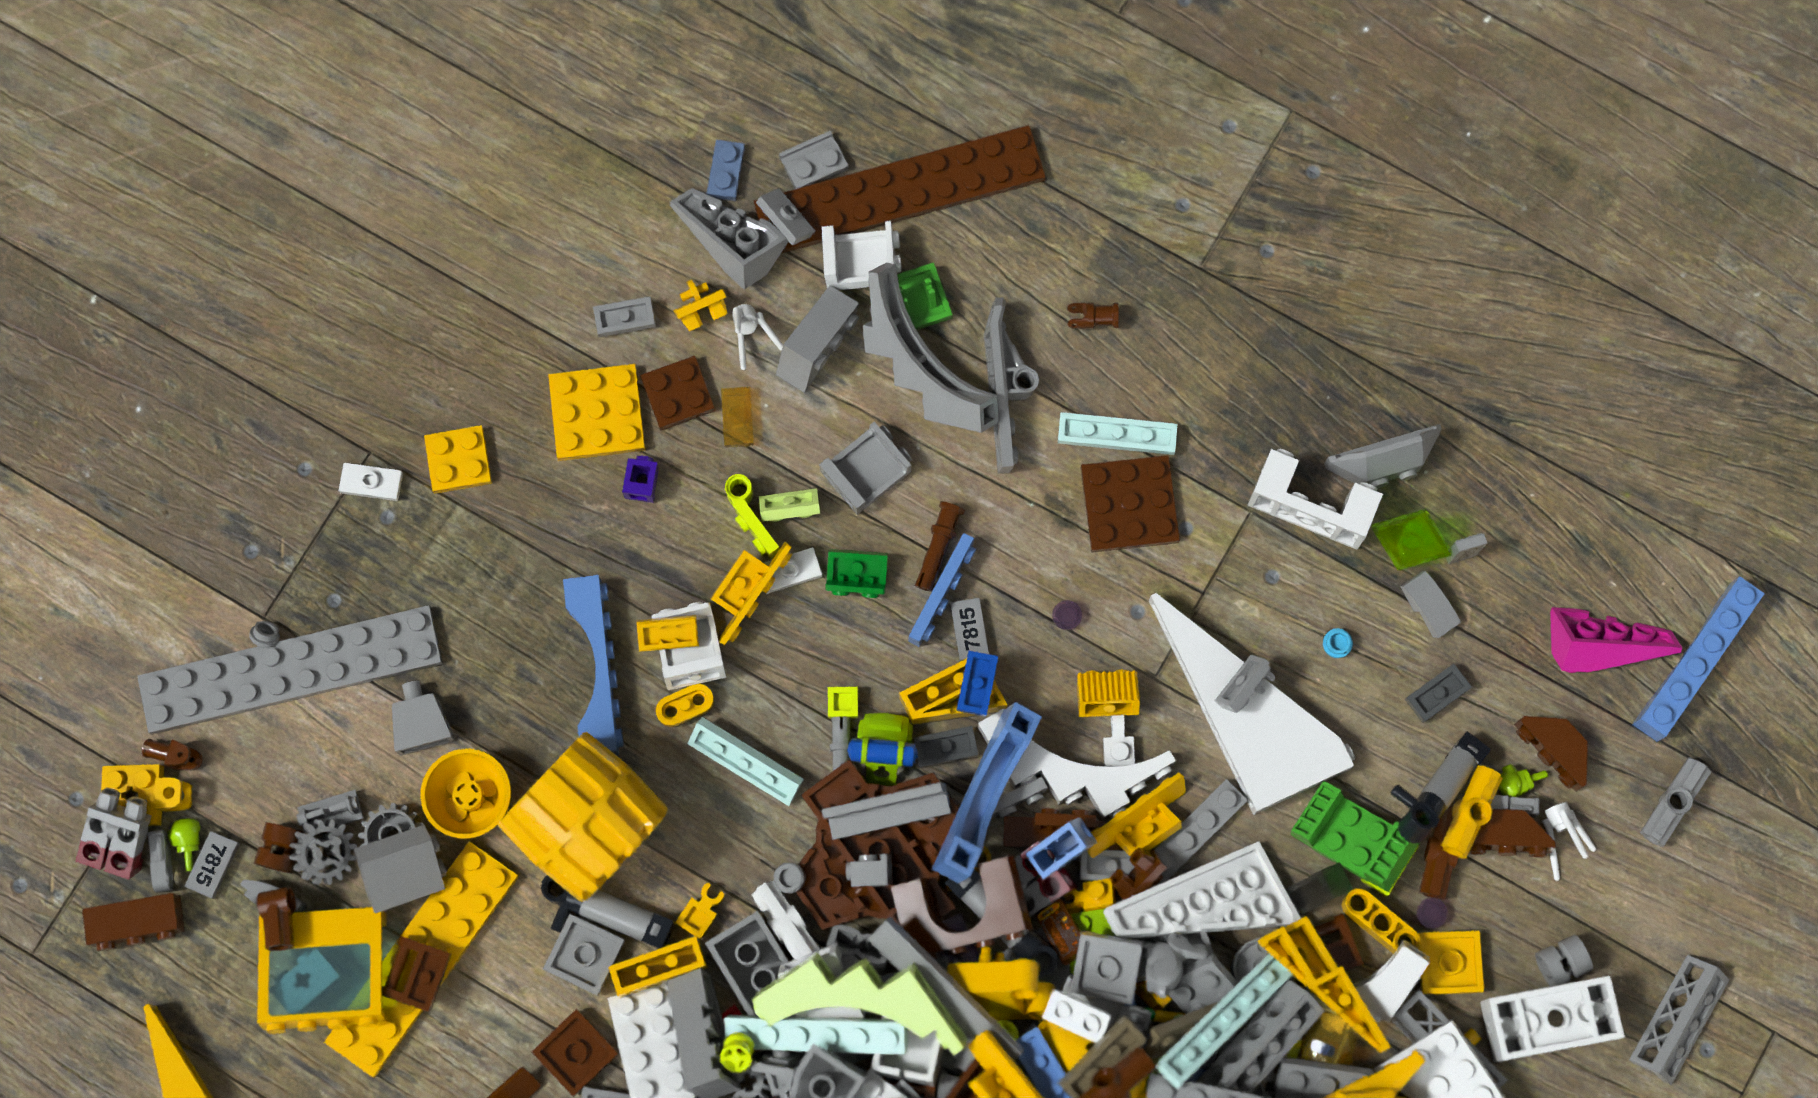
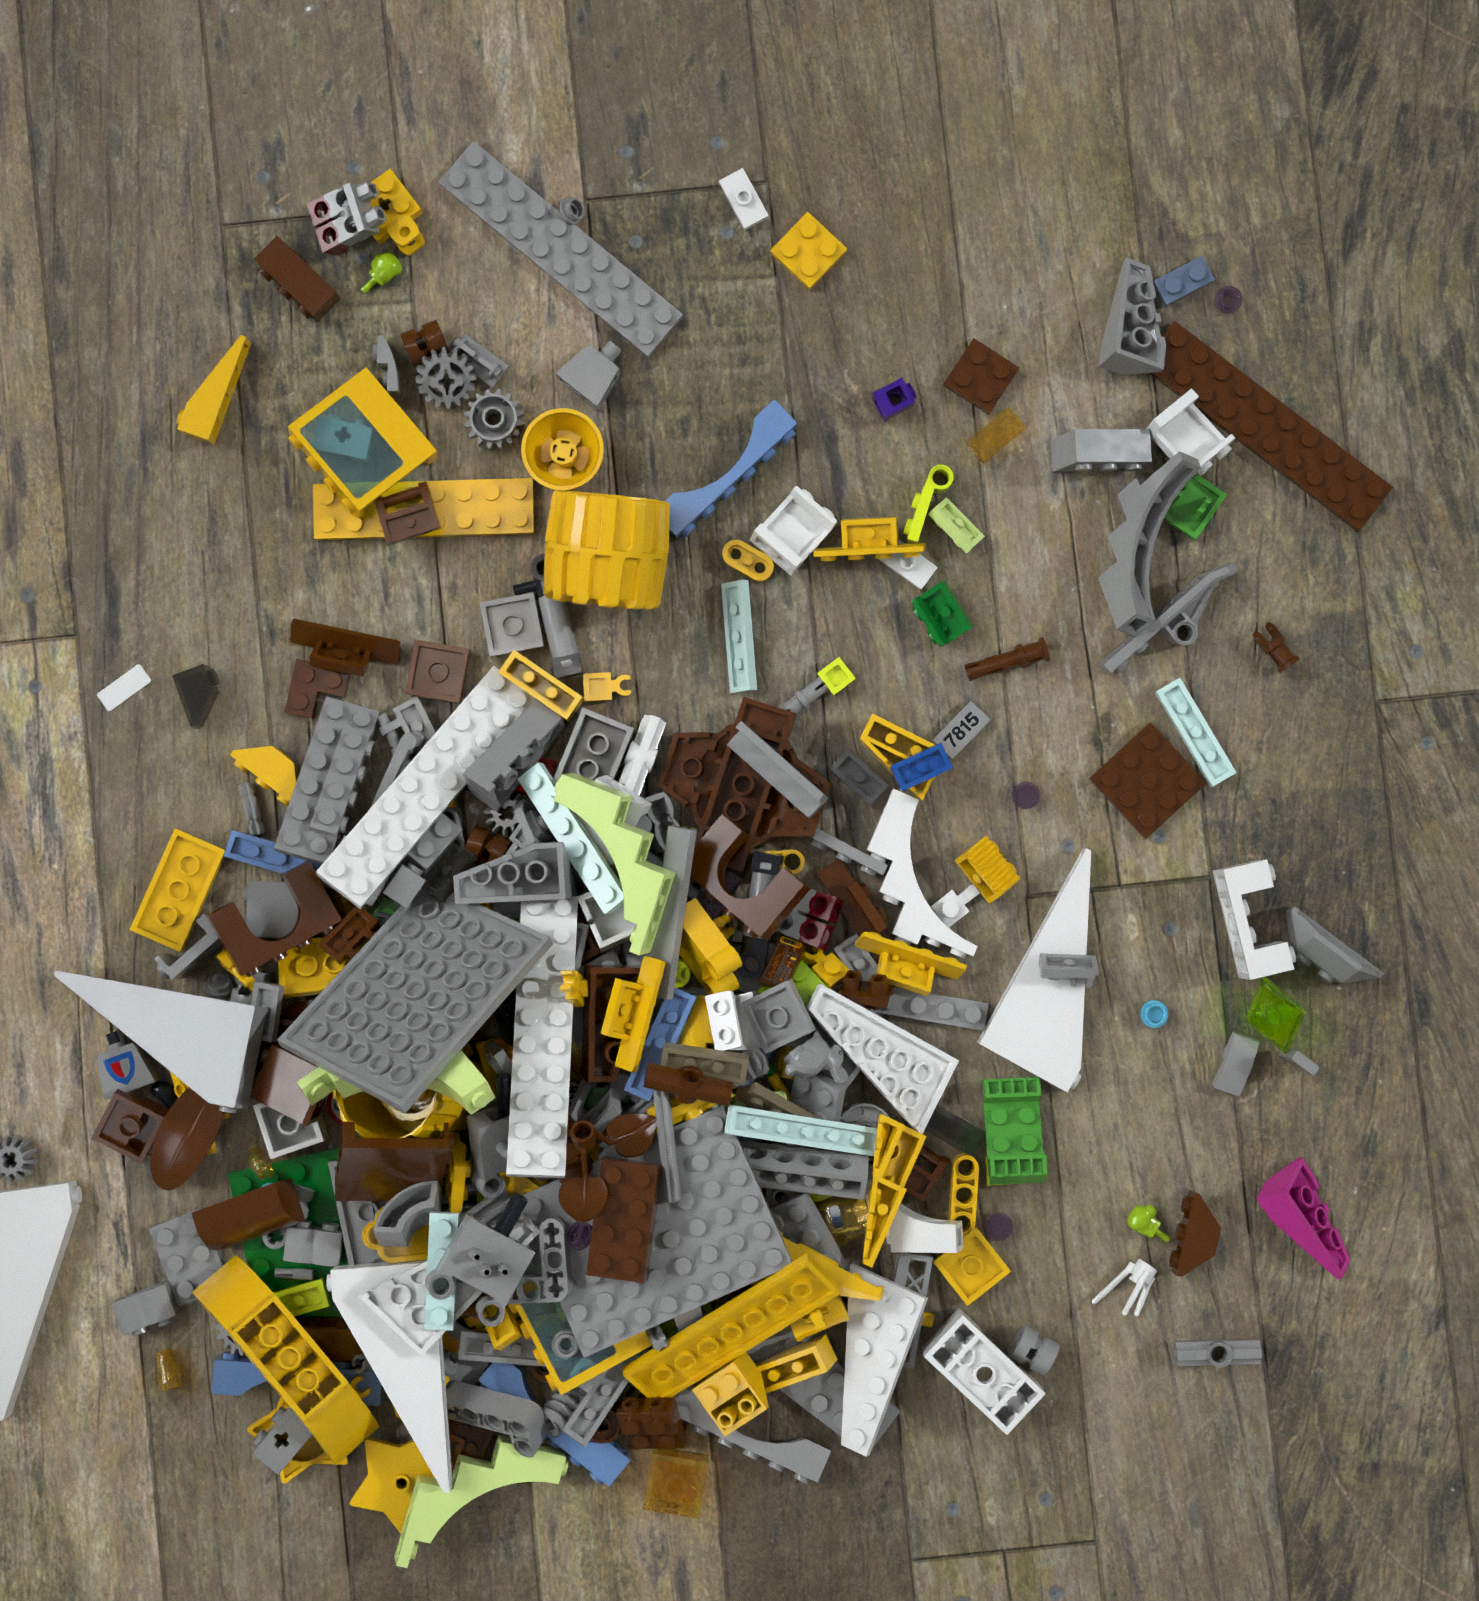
camera: 55 degrees right, 10 degrees up
(160, 861) = (353, 265): light grey piece -> none
(174, 754) = (436, 214): reddish brown piece -> none
(212, 865) = (378, 304): light grey tile -> none
(276, 911) = (377, 377): reddish brown piece -> none
(400, 868) = (474, 444): light grey brick -> none
(596, 412) = (921, 327): yellow plate -> none
(624, 316) = (1010, 291): light grey plate -> none
(667, 633) = (791, 507): yellow plate -> none
(713, 301) = (1050, 337): yellow hips -> none
(731, 1057) = (512, 787): neon yellow wheel -> none
(745, 323) = (1072, 387): white plant -> none
(766, 137) = (1235, 295): none -> clear purple plate
(785, 216) = (1178, 354): light grey plate -> none
(789, 877) = (676, 733): light grey tile -> none
(813, 161) = (1240, 343): light grey plate -> none
(867, 468) = (1028, 562): light grey panel -> none
(870, 871) = (723, 790): light grey brick -> none
(883, 742) = (827, 728): lime piece -> none
(949, 579) = (987, 687): medium blue plate -> none
(972, 820) = (806, 840): medium blue arch -> none
(1065, 844) = (847, 922): medium blue torso -> none
(1438, 693) = (1171, 1116): dark grey plate -> none
(1438, 862) = (1050, 1202): reddish brown piece -> none
(1441, 789) = (1115, 1171): piece -> none
(1464, 825) = (1081, 1208): yellow piece -> none
(1512, 833) = (1100, 1242): reddish brown slope -> none
(1531, 806) = (1122, 1228): light grey piece -> none
(1689, 1023) = (1057, 1473): light grey fence -> none
(1699, 659) = (1330, 1297): medium blue arch -> none

